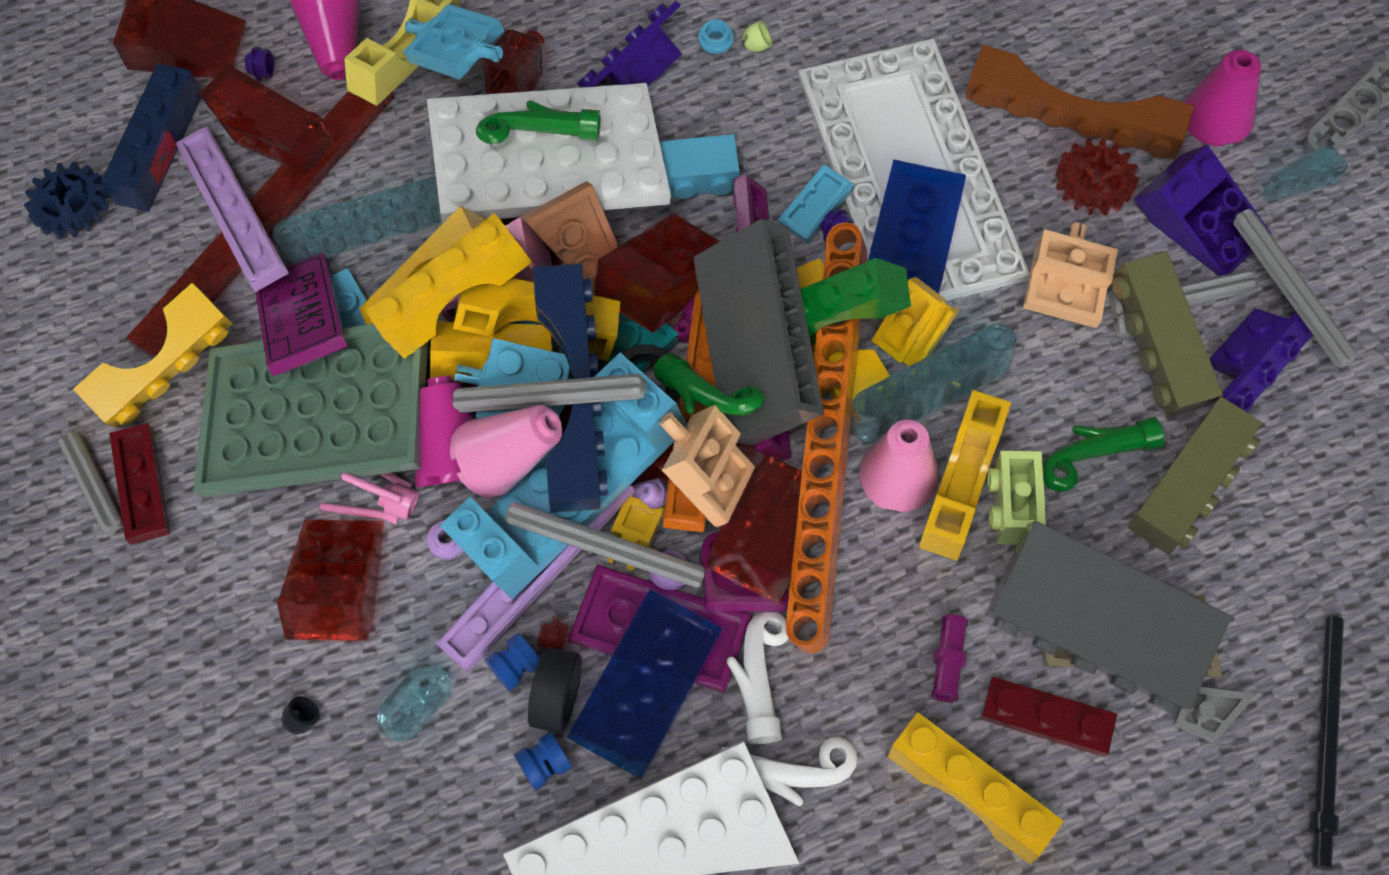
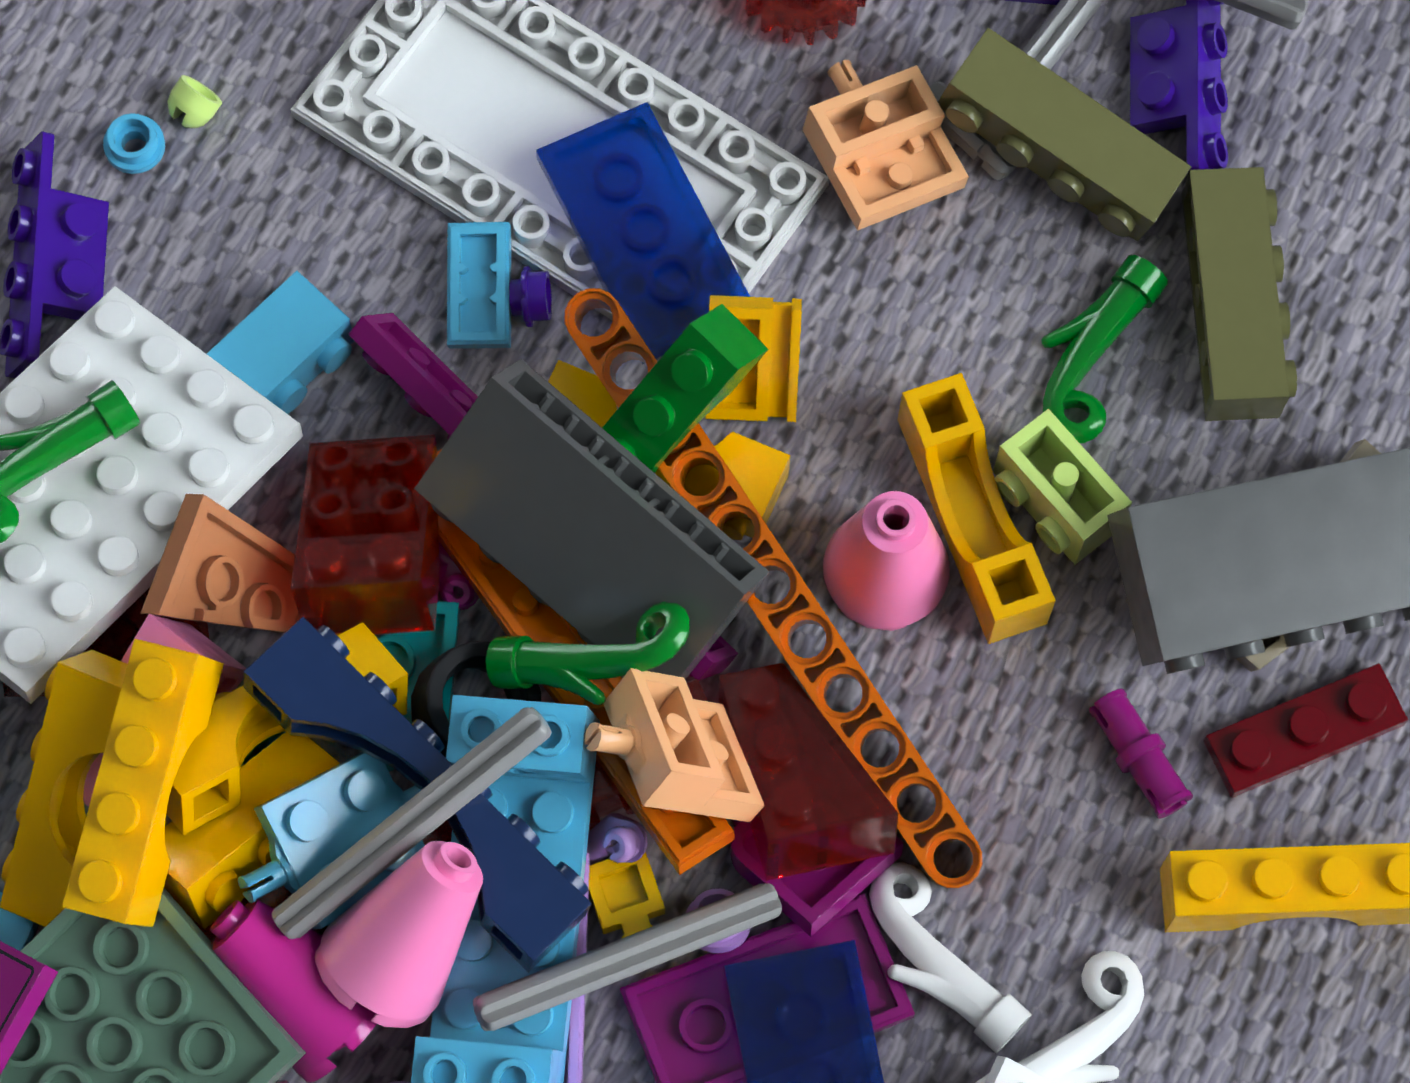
camera: 45 degrees left, 5 degrees up
(933, 381) = (842, 441): clear light blue beam -> none

